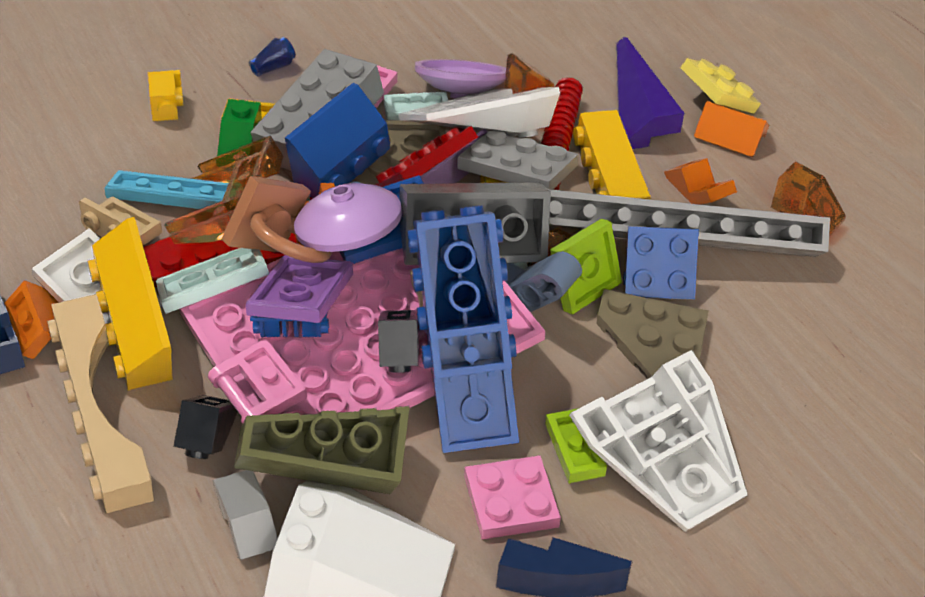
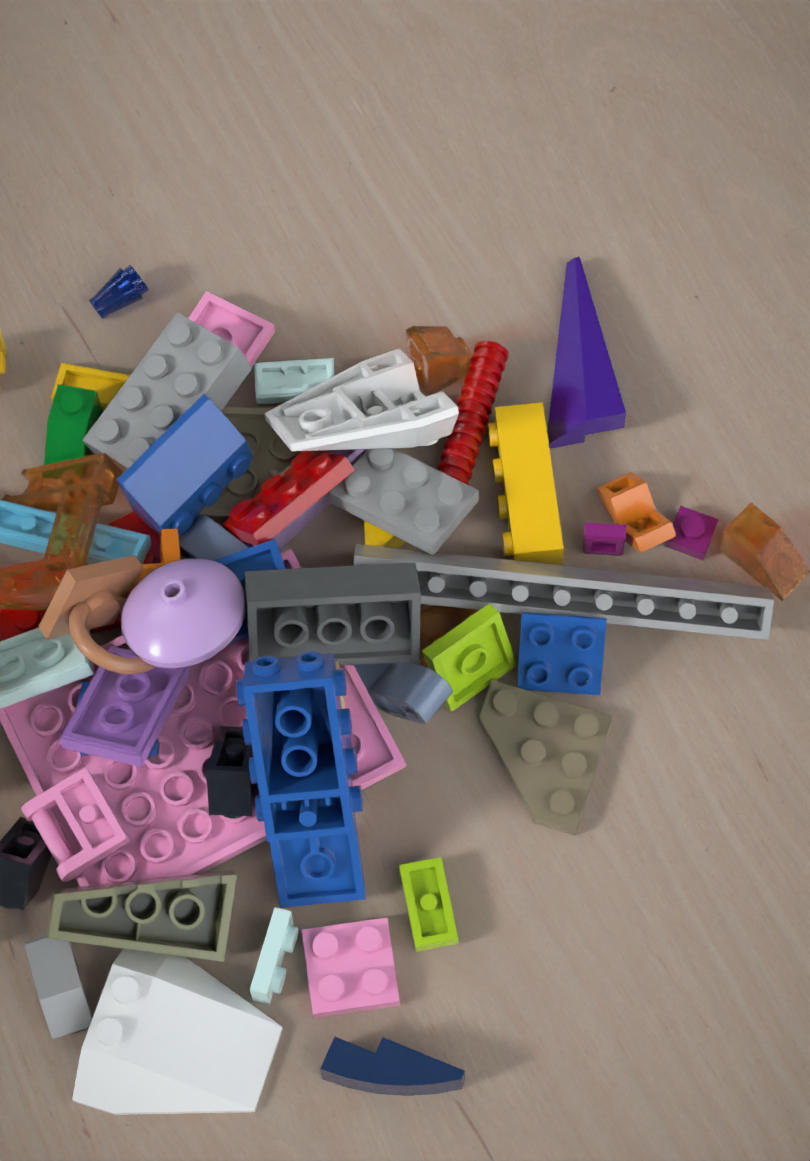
camera: 10 degrees right, 20 degrees up
(440, 499) = (269, 974): none -> light aqua plate
(460, 76) = (352, 330): lavender dish -> none
(668, 441) = (529, 908): white wedge -> none
(680, 191) = (604, 539): none -> magenta tile
(721, 85) = (686, 353): light yellow plate -> none
(730, 129) = (691, 420): orange panel -> none
(748, 195) = (693, 532): none -> magenta plate

